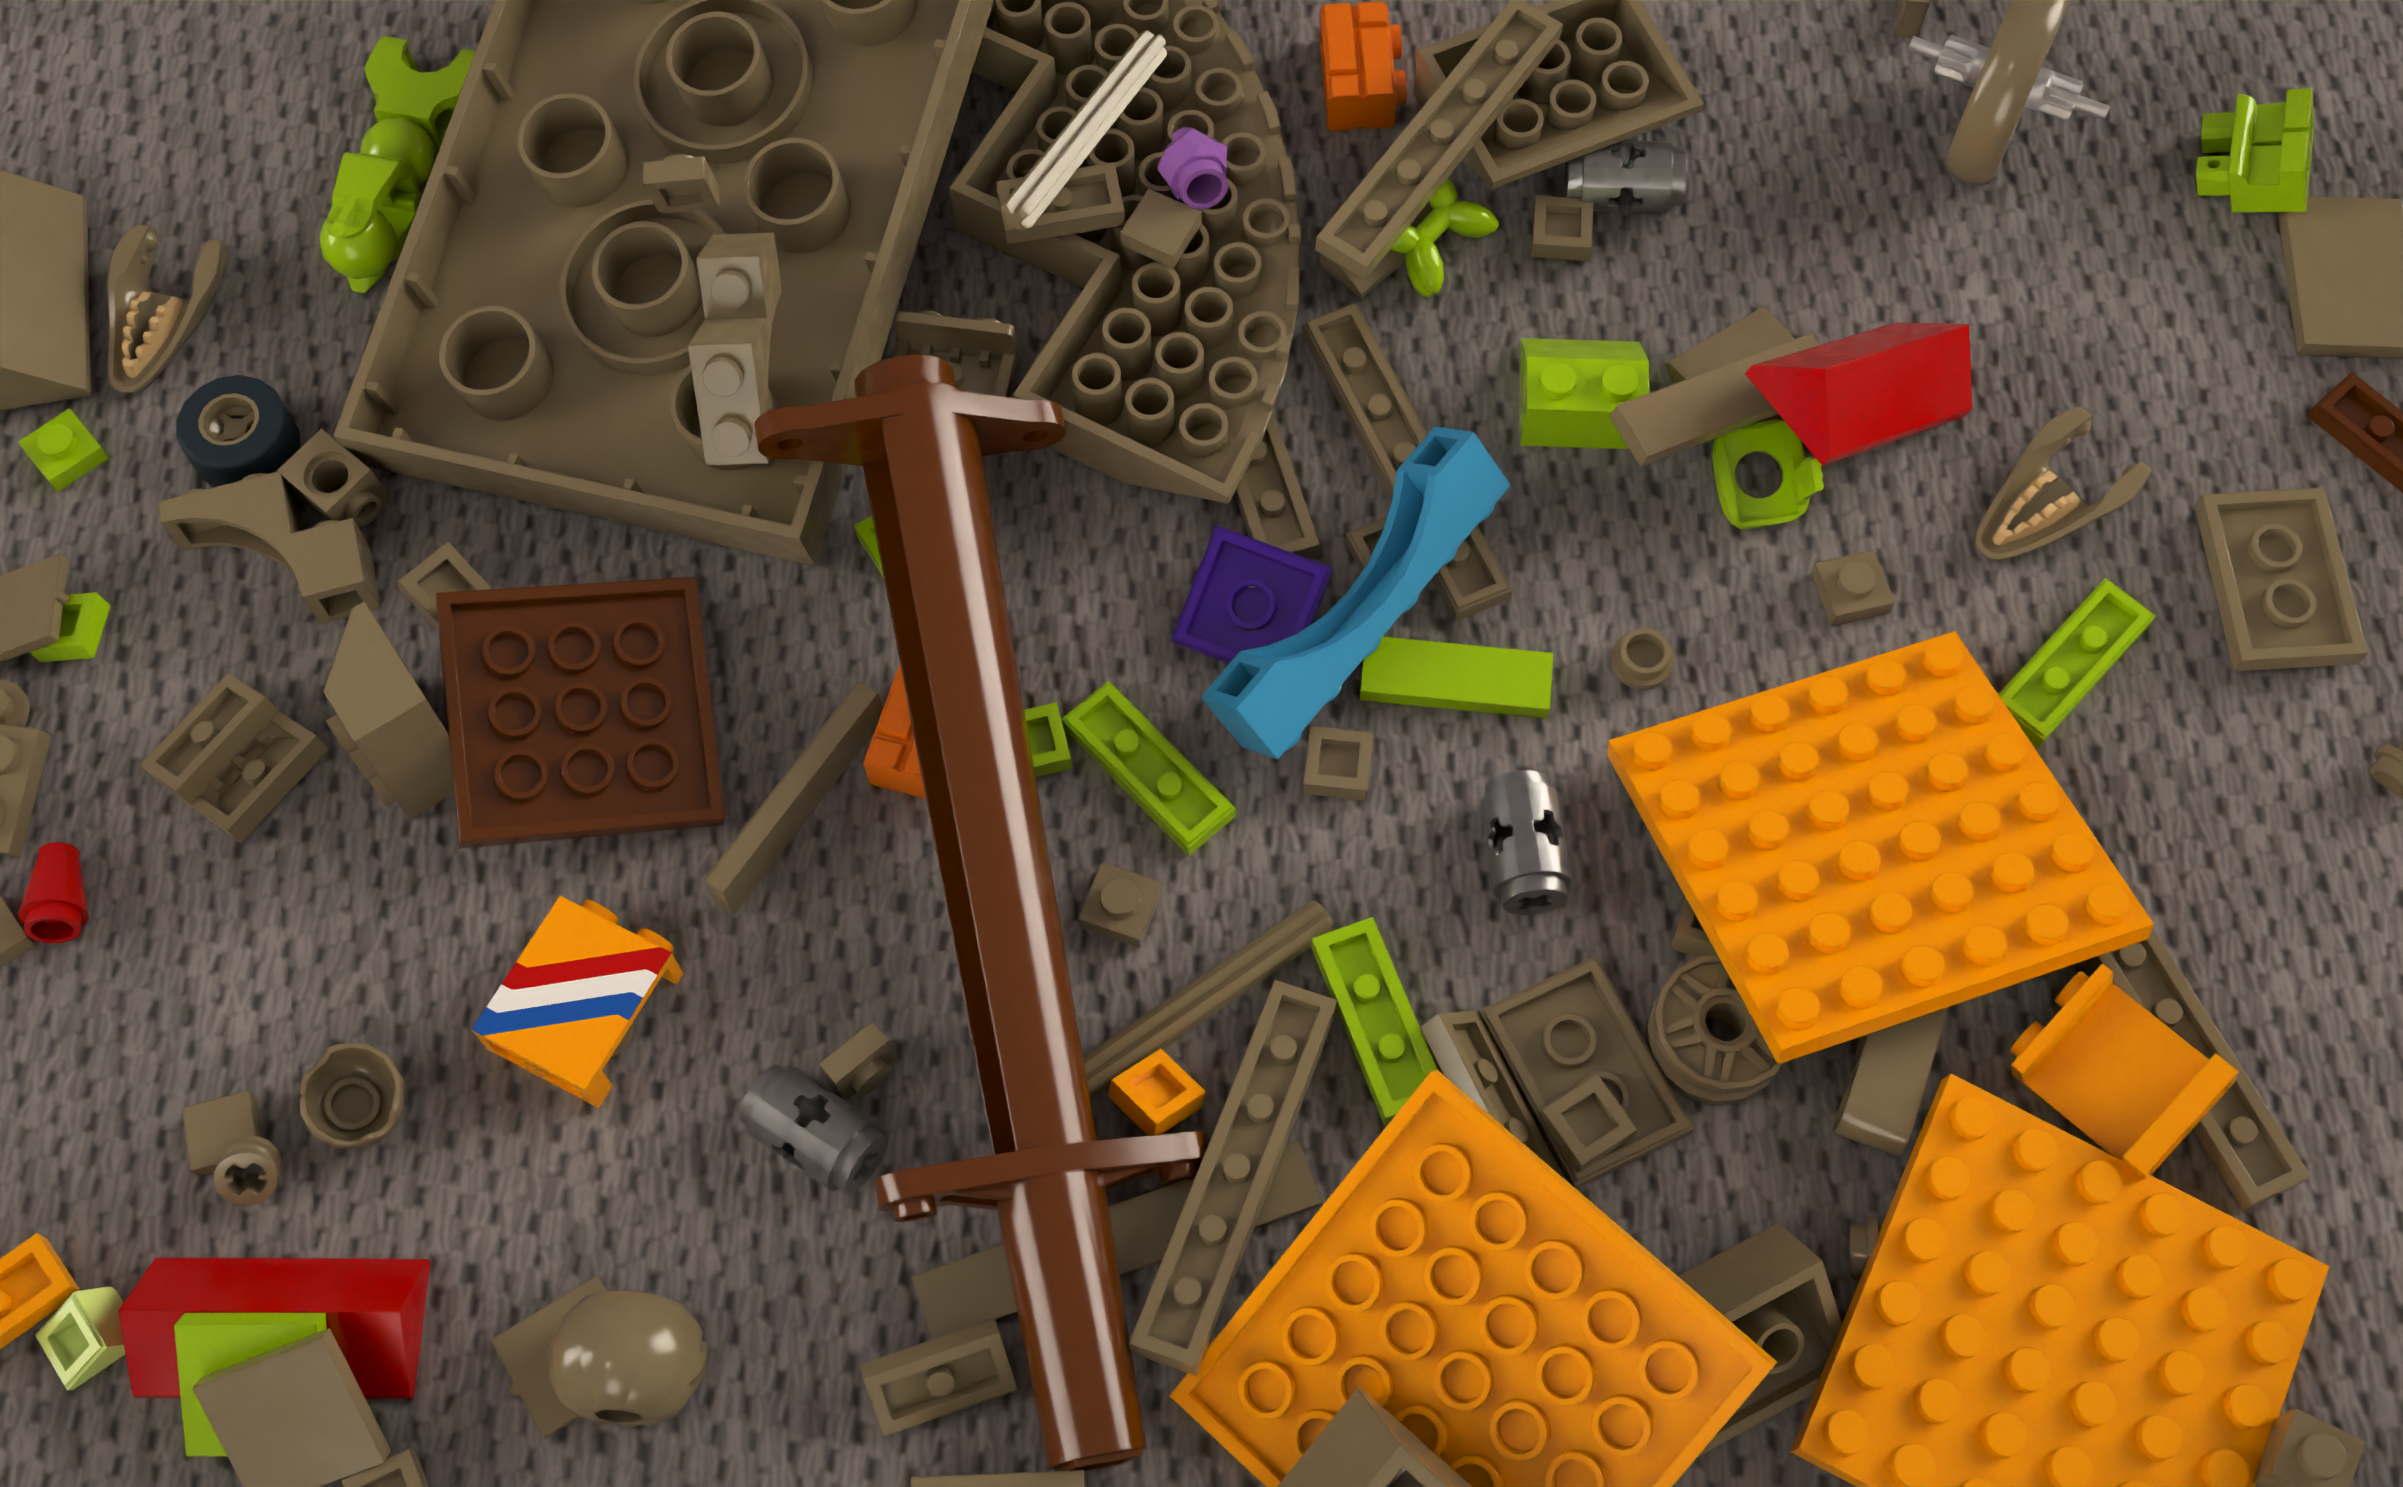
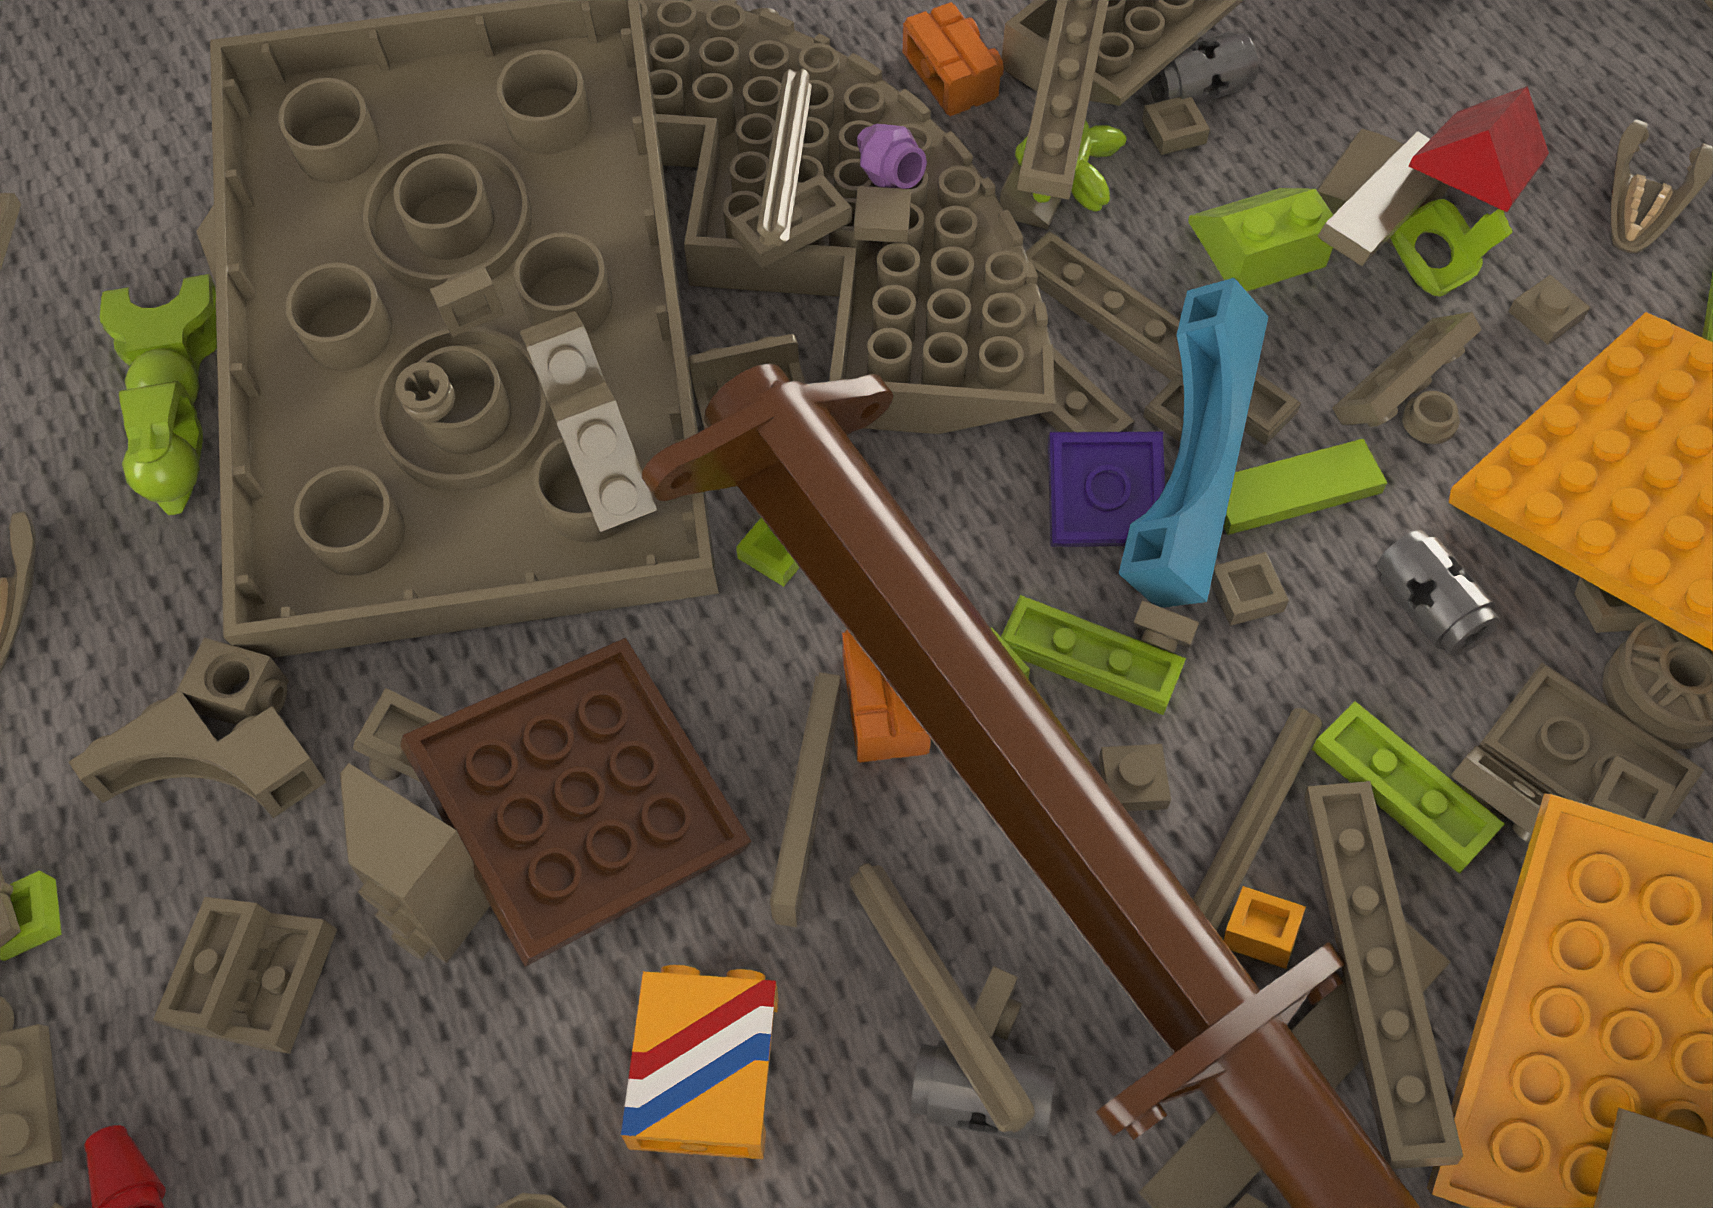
camera: 25 degrees left, 5 degrees down
(236, 430) = (114, 672): black wheel -> none
(600, 245) = (416, 376): none -> dark tan bush
(809, 1028) = (943, 1000): none -> dark tan axle
(1228, 768) = (1164, 627): none -> dark tan plate
(1645, 597) = (1407, 370): none -> dark tan plate

